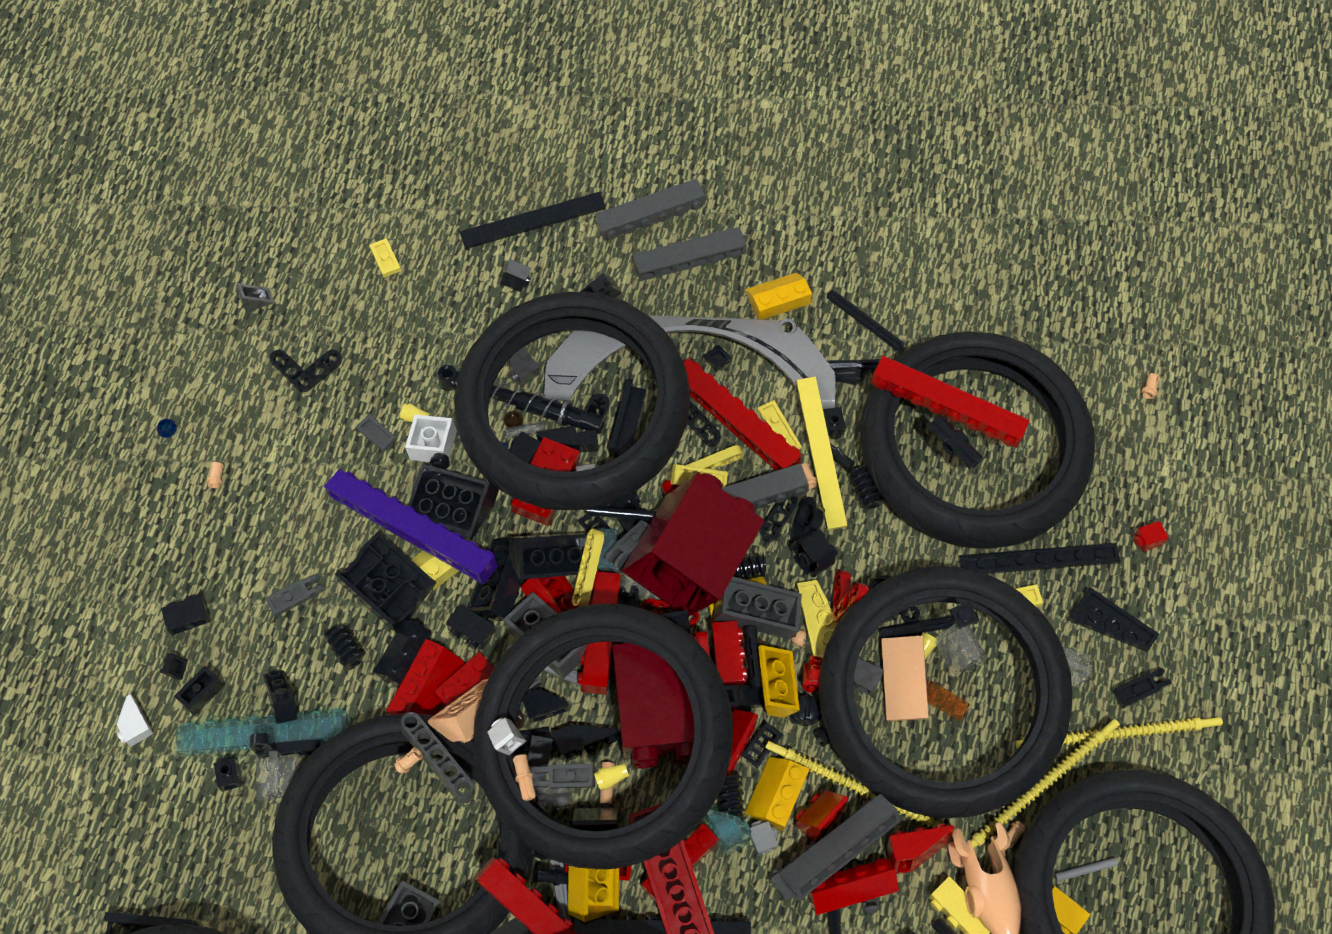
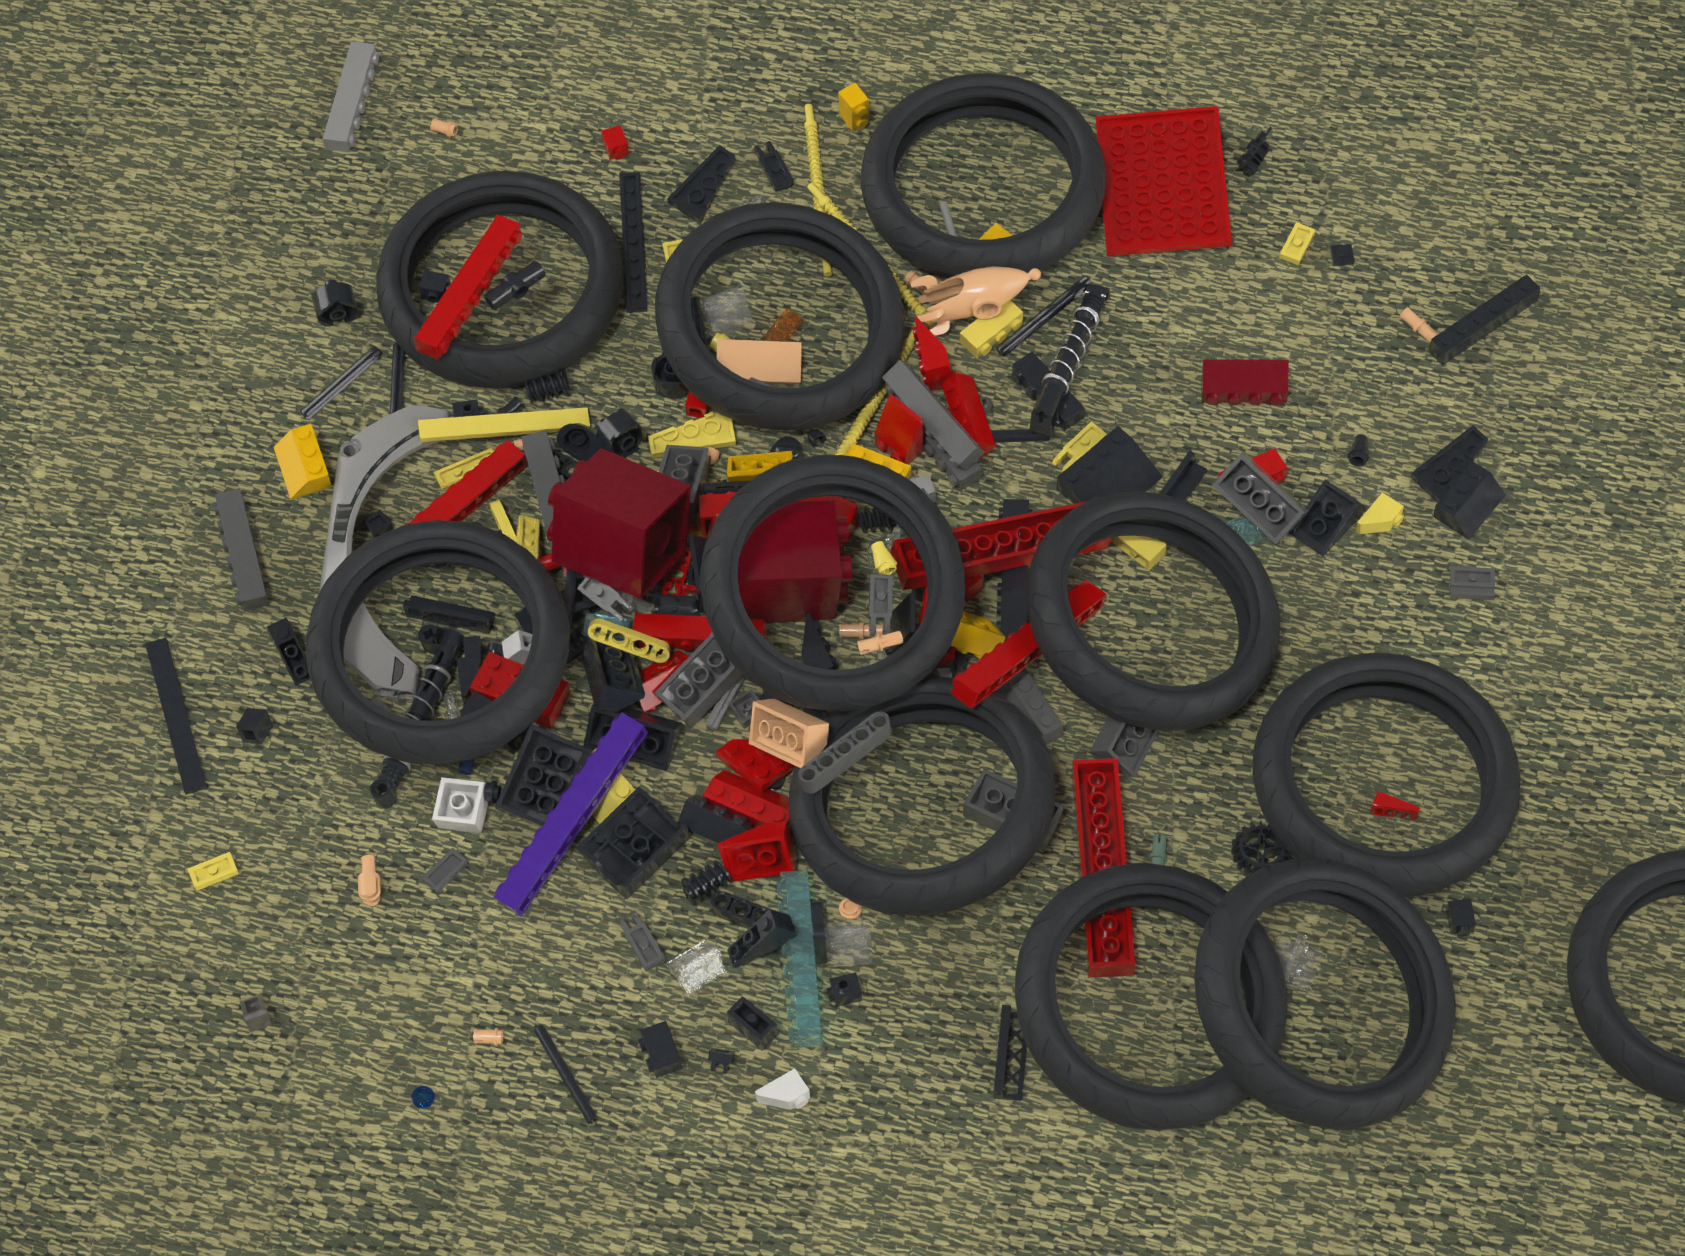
camera: 85 degrees left, 5 degrees down
(175, 539) = (565, 1074): none -> black piece
(263, 641) = (697, 966): none -> clear bracket
(307, 374) = (363, 948): black beam -> none
(311, 671) = (733, 905): none -> black beam
(365, 373) = (369, 882): none -> light nougat arm
(366, 691) = (759, 852): none -> red slope
(404, 763) = (849, 776): light nougat pin -> none
(409, 410) = (424, 832): light yellow cone -> none
(470, 627) = (688, 760): black brick -> none
(505, 736) = (839, 655): white slope -> none
(587, 458) = (494, 648): none -> black hinge
(650, 209) = (177, 590): dark grey brick -> none
(811, 674) = (753, 440): red hips -> none
(844, 596) = (678, 407): red beam -> none
(849, 376) = (411, 395): black cone -> none
(942, 304) = (334, 303): none -> black brick
(948, 371) = (433, 285): none -> black brick
(963, 615) = (714, 277): black plate -> none
(1175, 304) = (350, 97): none -> light grey brick
(1219, 764) = (854, 107): none -> yellow brick

